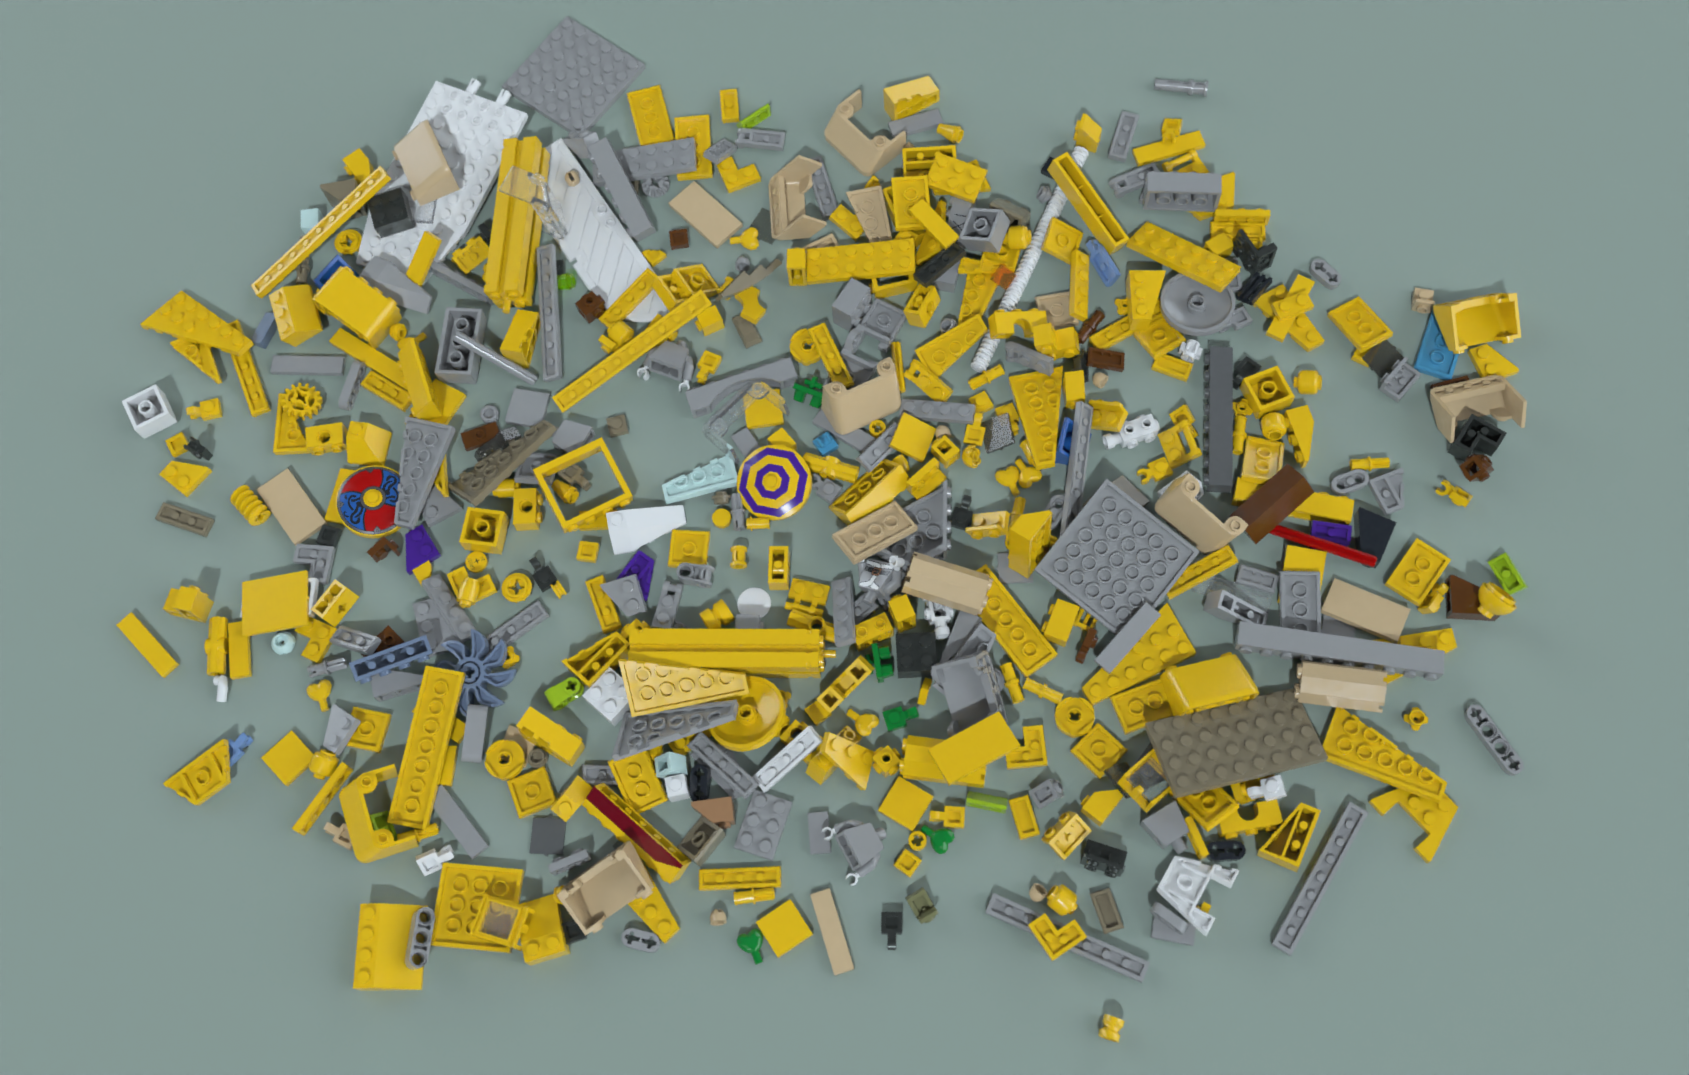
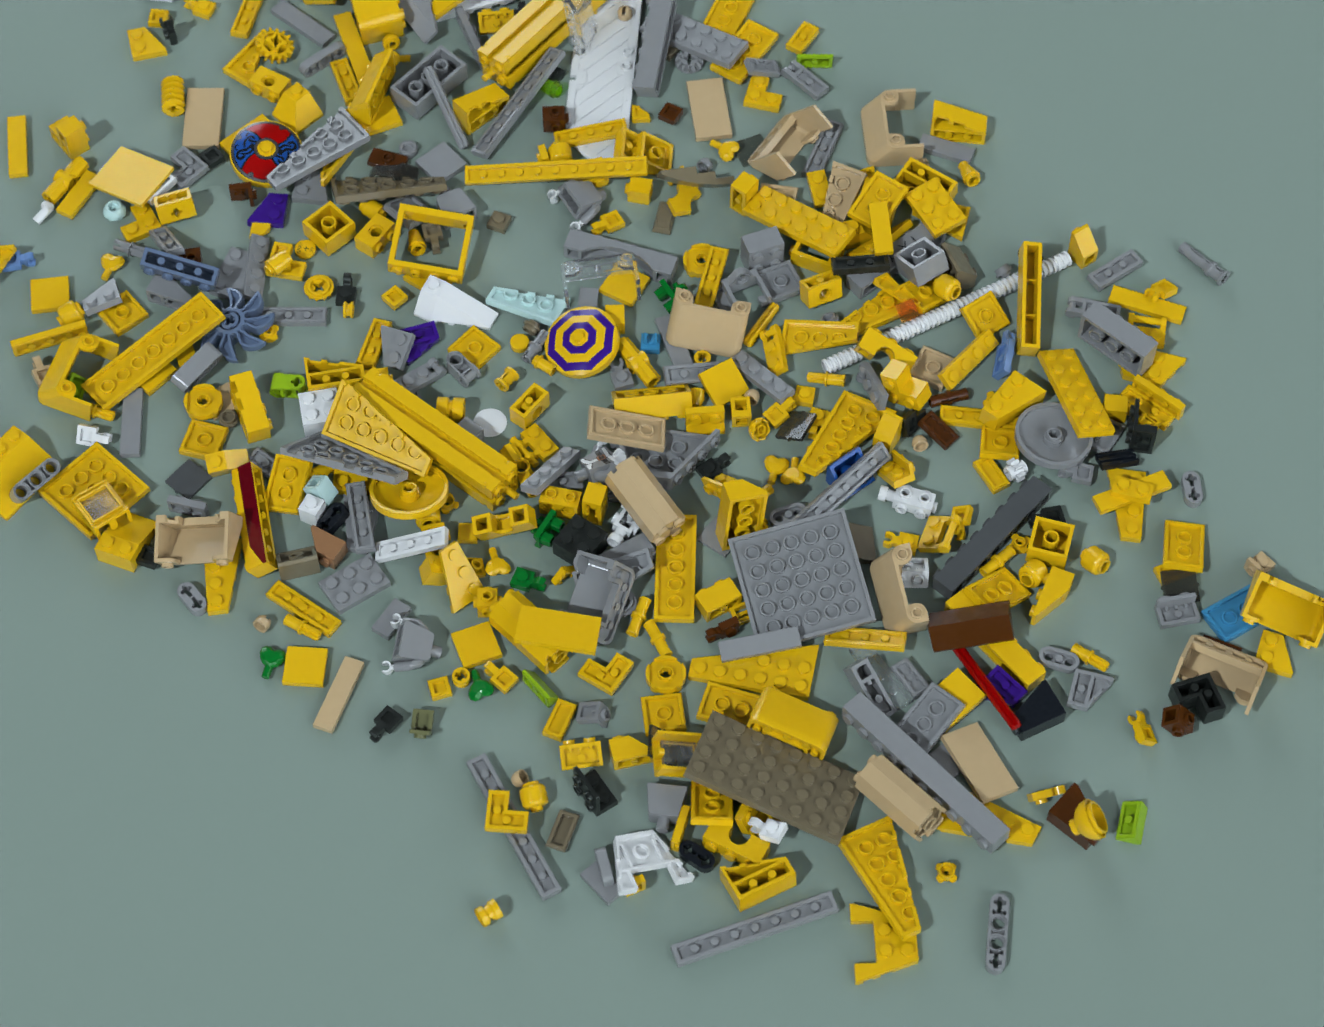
camera: 30 degrees right, 10 degrees down
(184, 519) = (118, 76): dark tan tile -> none
(1417, 572) = (1052, 765): yellow plate -> none

